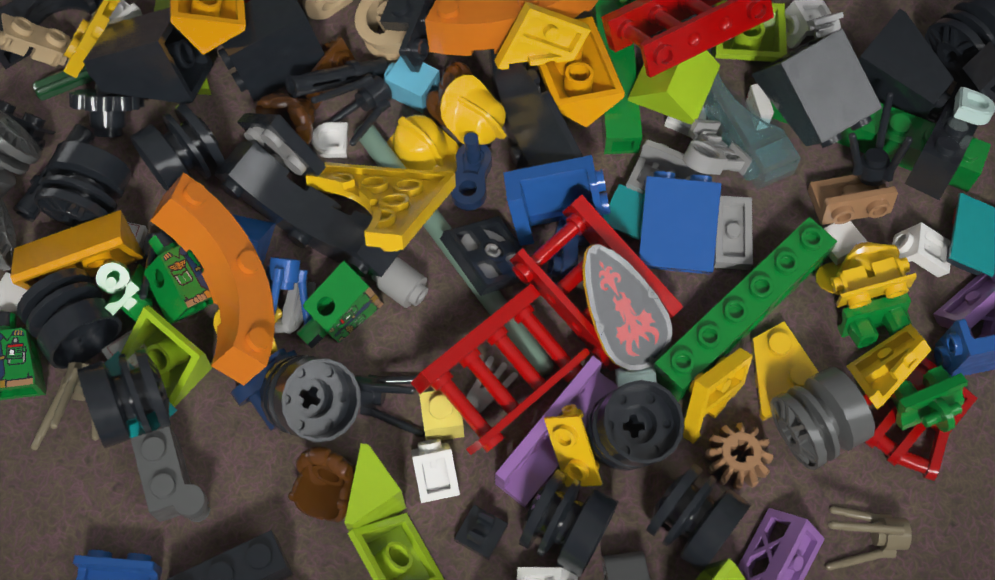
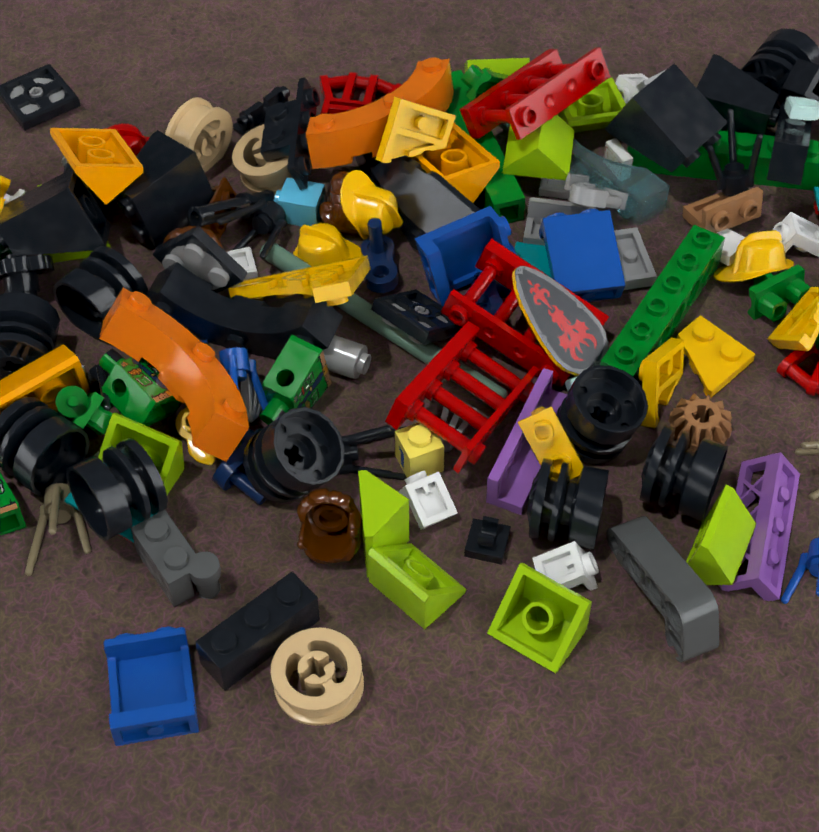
camera: 15 degrees left, 15 degrees down
(822, 417) = (763, 372): dark grey wheel -> none
(888, 280) = (780, 253): yellow hinge -> none

